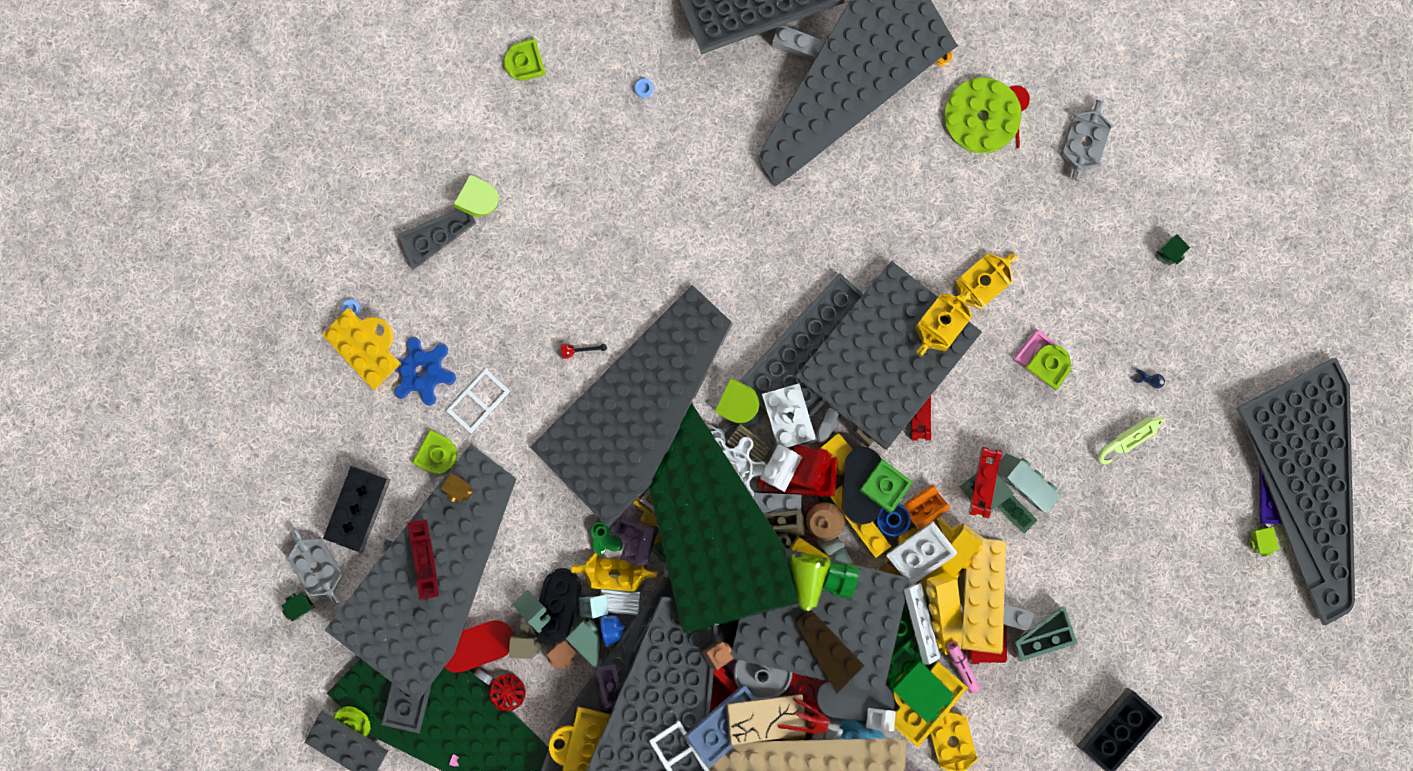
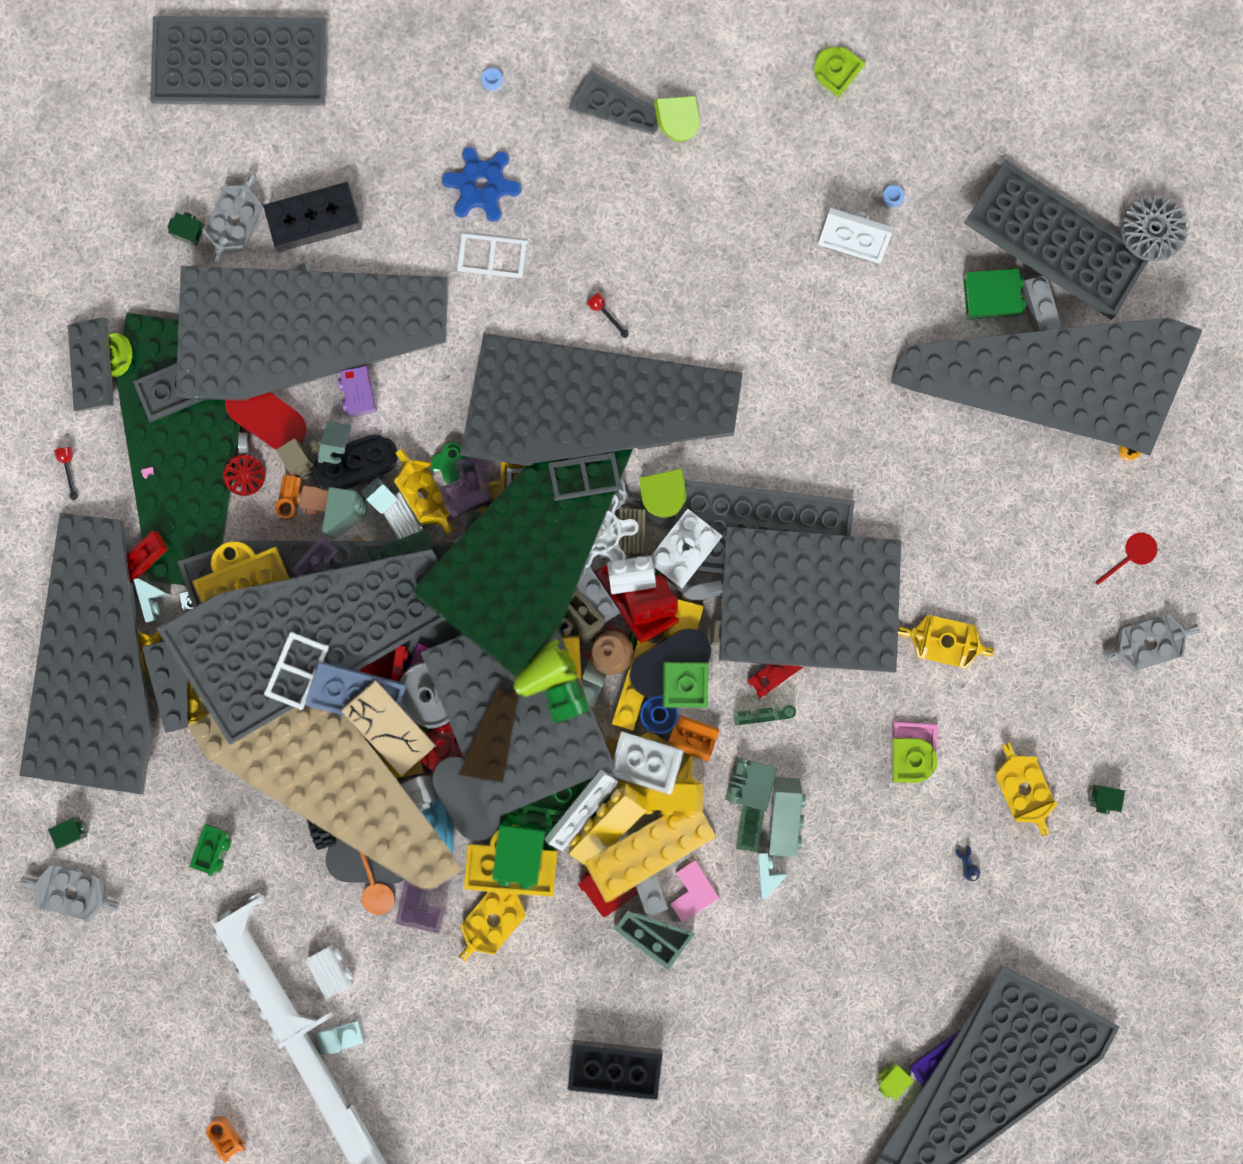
camera: 55 degrees right, 0 degrees up
(202, 480) = (238, 60): none -> dark grey plate
(363, 346) = (465, 115): yellow plate -> none
(423, 559) = (310, 308): dark red slope -> none
(436, 454) = (415, 252): lime tile -> none
(456, 489) = (395, 292): pearl gold brick -> none
(506, 567) = (357, 391): none -> medium lavender brick
(544, 670) = (288, 495): none -> orange piece
(611, 629) = (368, 526): blue piece -> none
(645, 612) = (412, 543): none -> clear green plate
(653, 135) = (855, 235): none -> white plate
(675, 444) = (582, 461): none -> dark grey window
(717, 654) = (415, 638): nougat brick -> none
(764, 70) = (993, 294): none -> green brick
(818, 722) = (420, 777): red plant -> none
(880, 719) = (464, 835): white panel -> none
(939, 335) = (862, 631): yellow plate -> none
(946, 444) = (765, 715): none -> clear green plate
(955, 652) = (578, 859): bright pink pin -> none
(982, 135) = (1110, 506): lime plate -> none
(985, 482) = (756, 775): red plate -> none
(1036, 581) = (699, 892): none -> bright pink tile
(1063, 527) = (767, 881): none -> light aqua slope
(1131, 438) = (900, 885): yellowish green plate -> none
(1141, 307) = (1038, 802): none -> yellow plate

